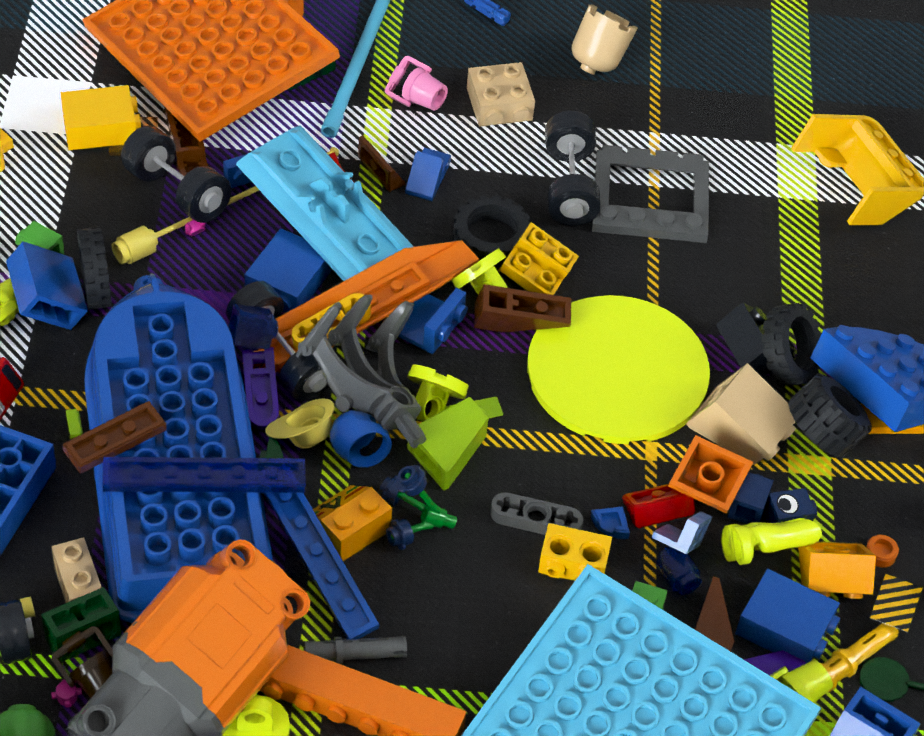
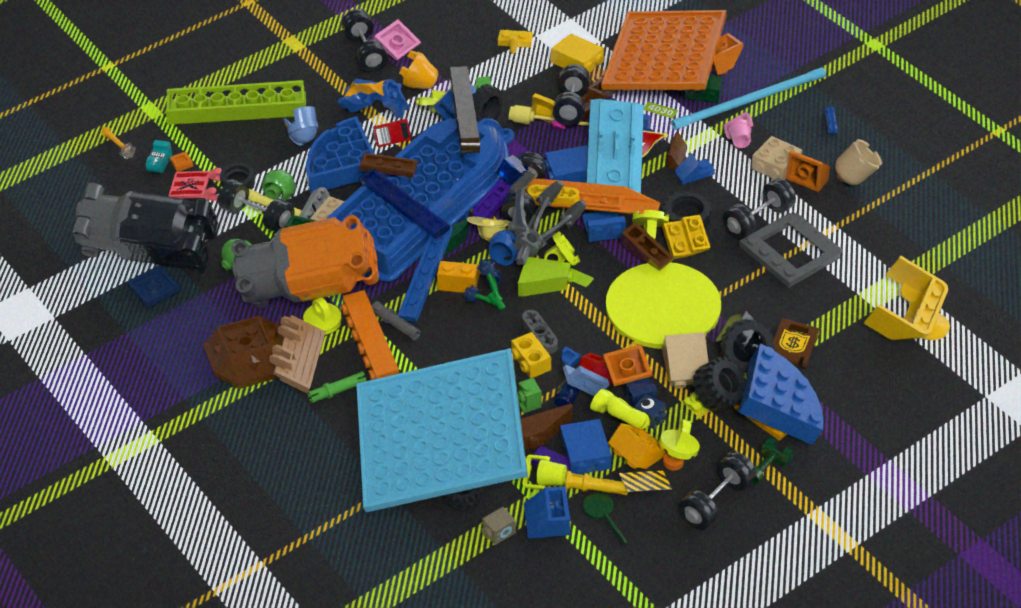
camera: 55 degrees right, 5 degrees down
(33, 577) = (320, 193): none -> light grey beam
(120, 284) = (464, 110): none -> beam
(153, 213) = (542, 106): none -> yellow slope
(282, 123) = (661, 110): none -> lime sticker
(559, 85) = (807, 171): none -> orange slope
(806, 462) = (694, 403): none -> neon yellow plate
(815, 294) = (793, 344): none -> reddish brown container
(870, 523) = (680, 442): none -> neon yellow tile

